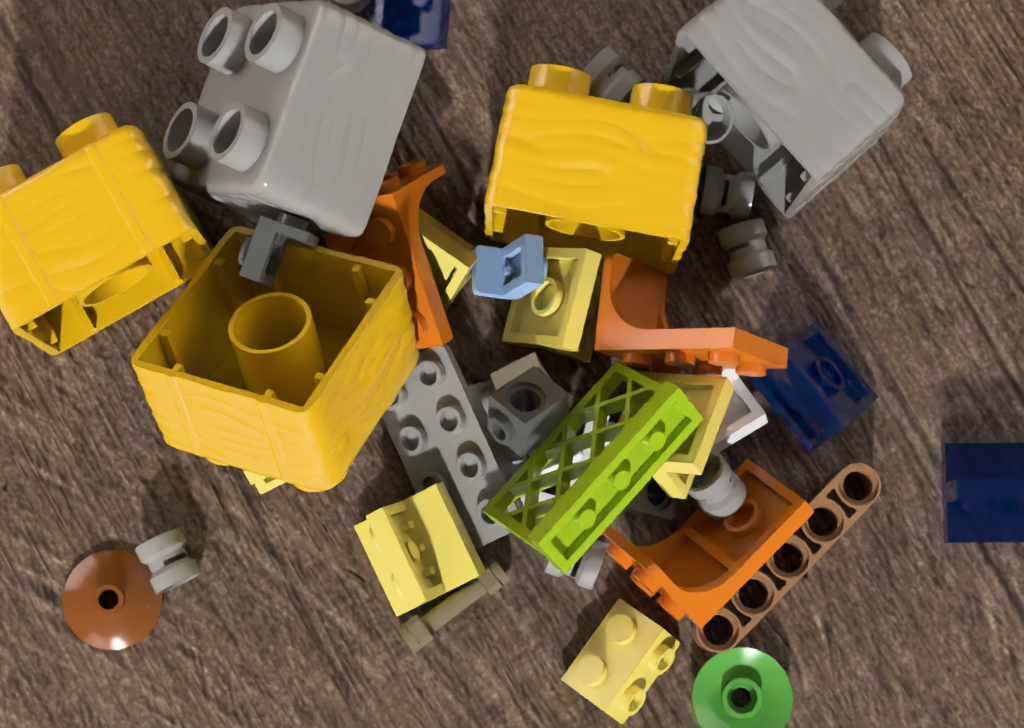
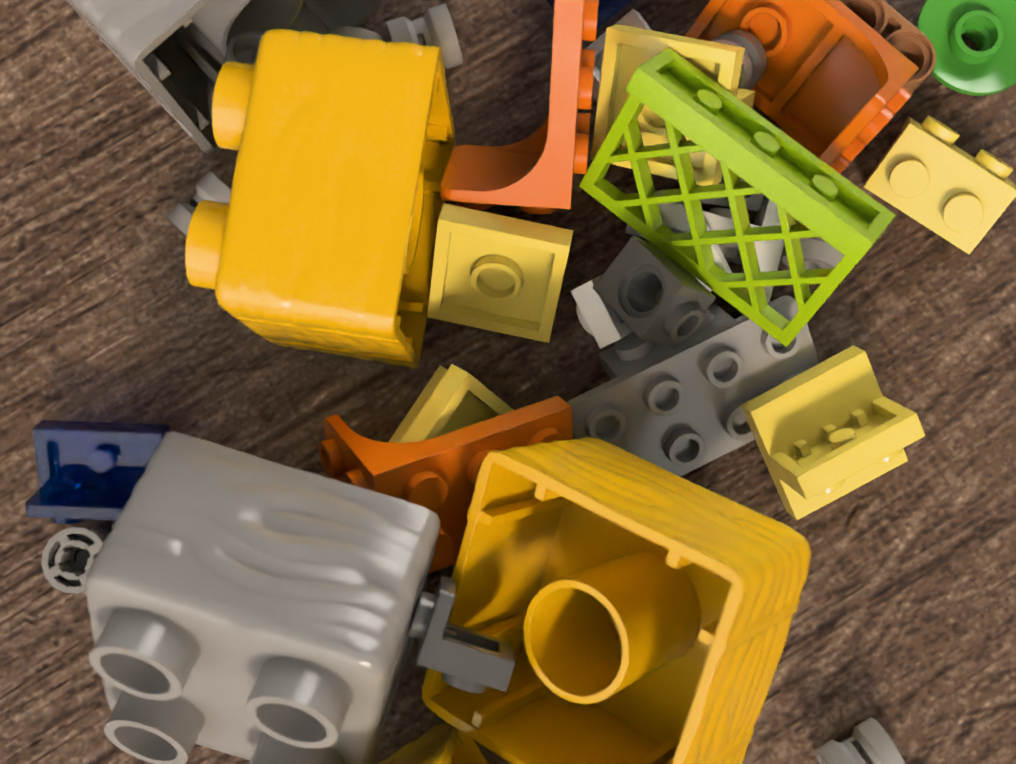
camera: 85 degrees left, 0 degrees up
(418, 631) = (934, 428): dark tan bar -> none
(509, 270) = (460, 325): light blue bracket -> none

